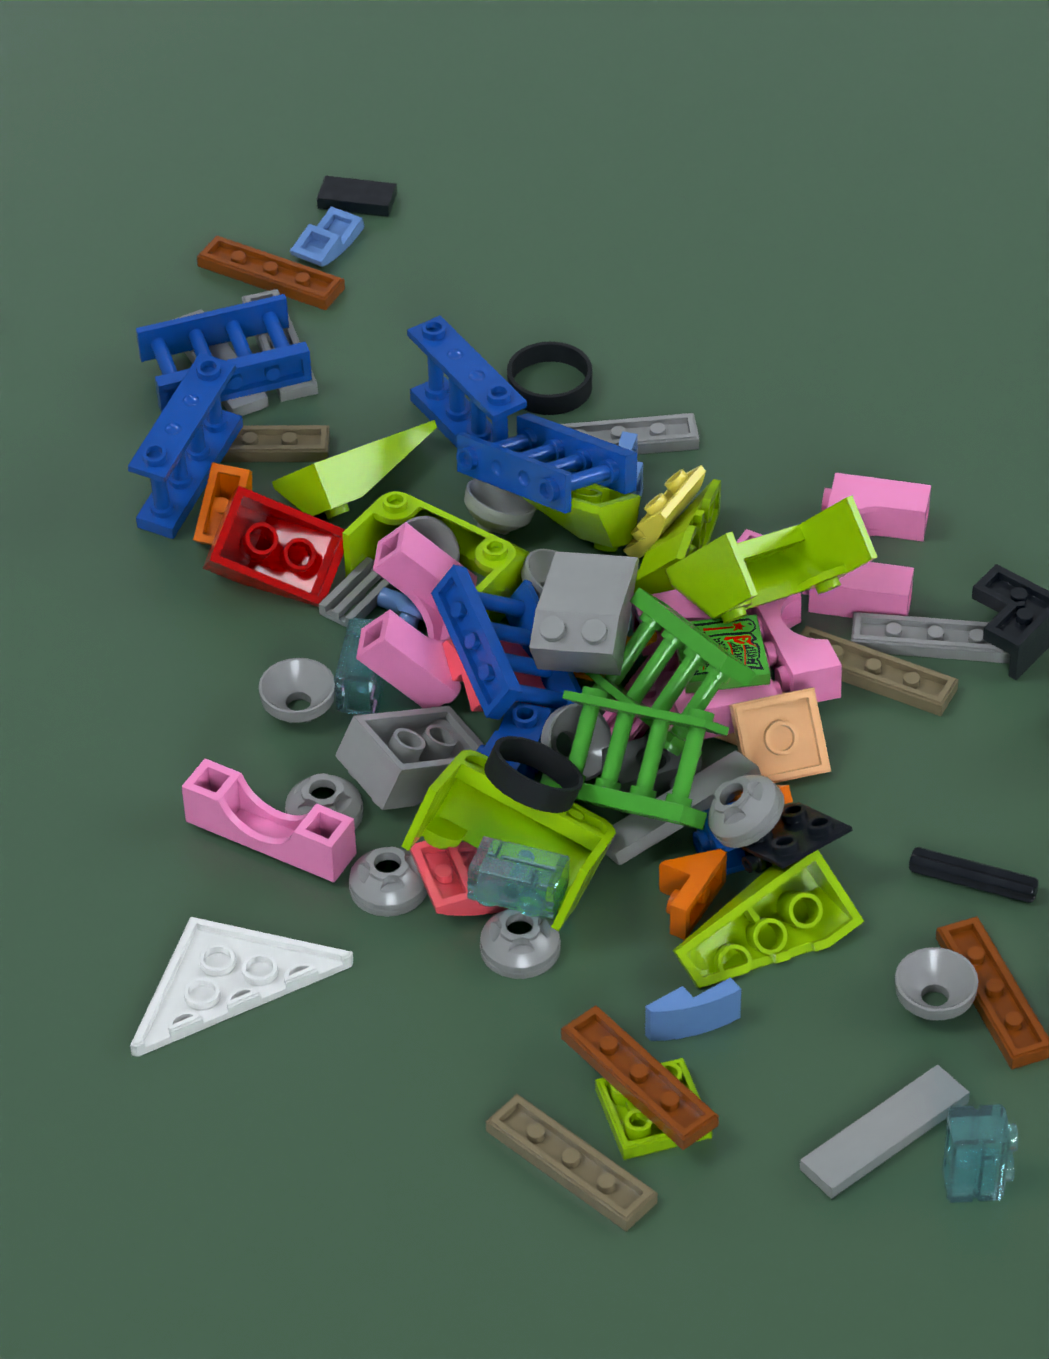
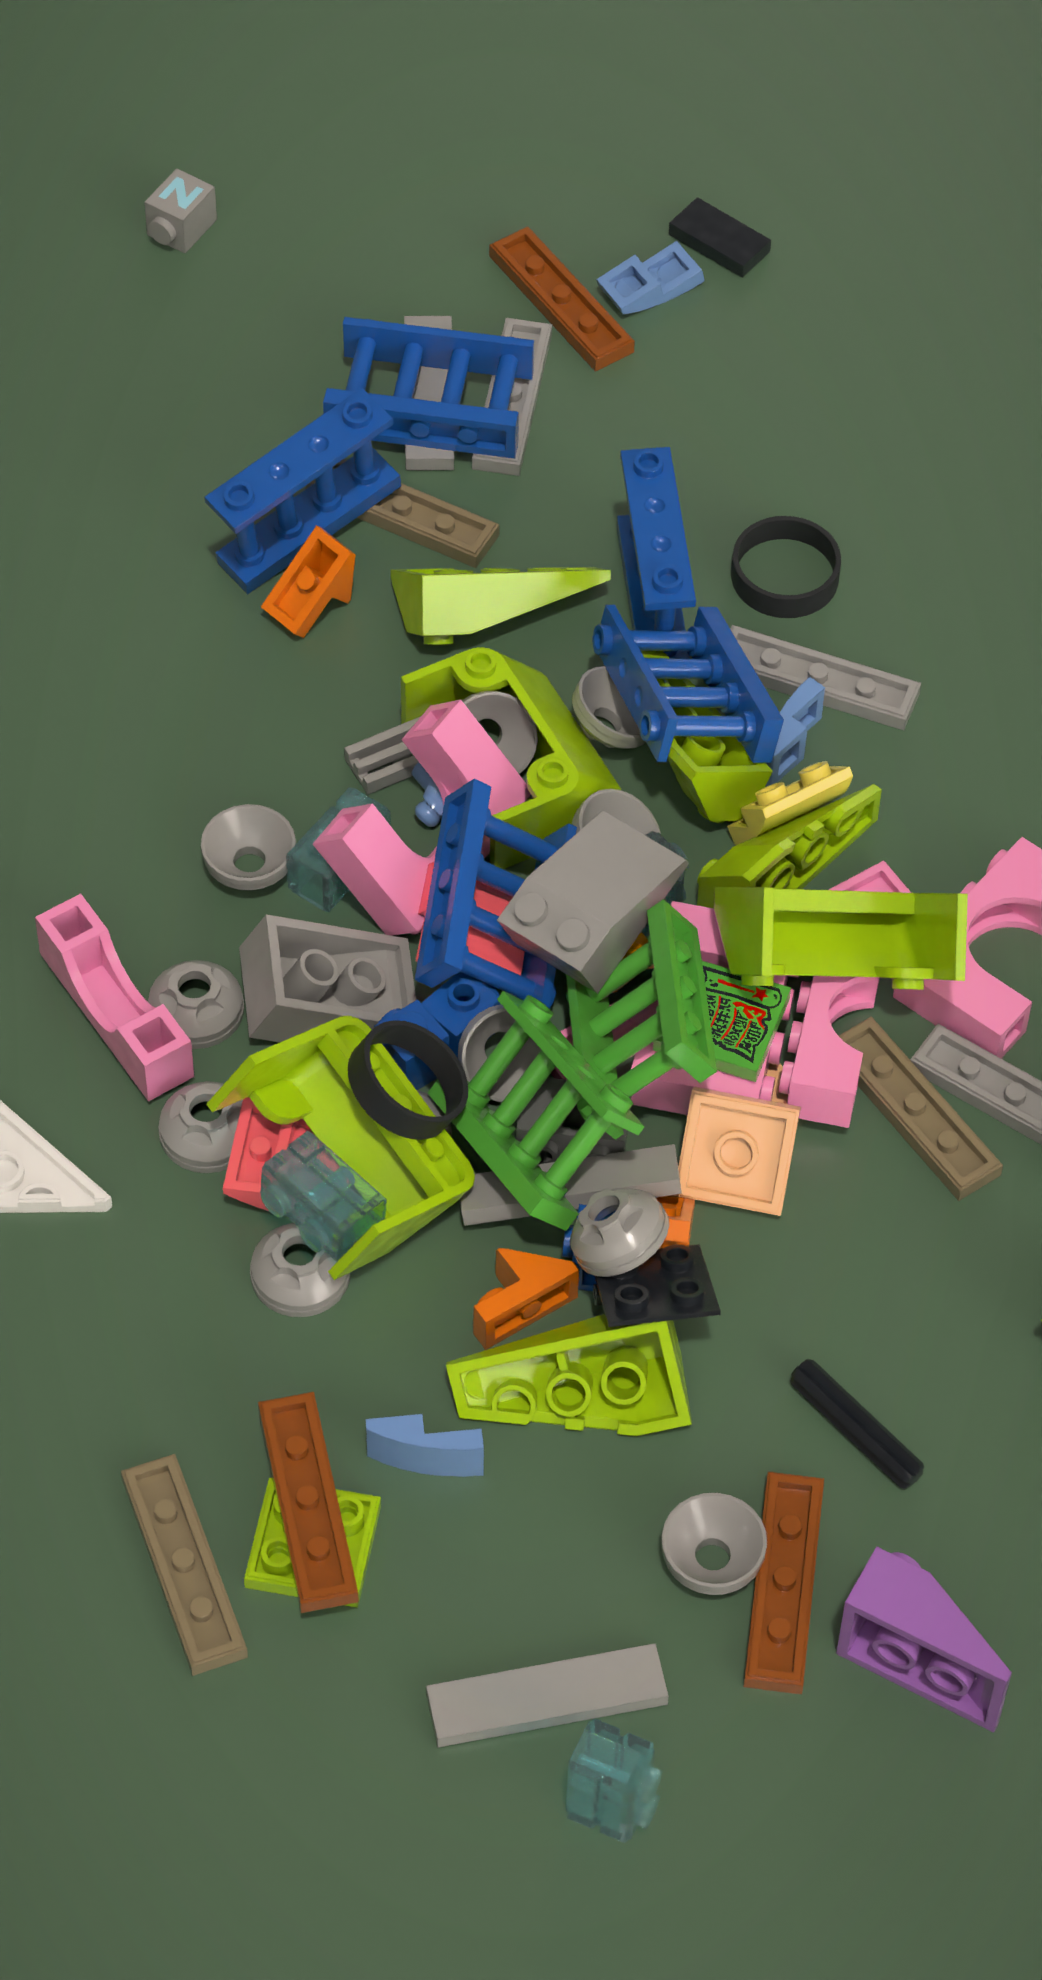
camera: 25 degrees right, 10 degrees up
(275, 548) = (330, 660): red slope -> none

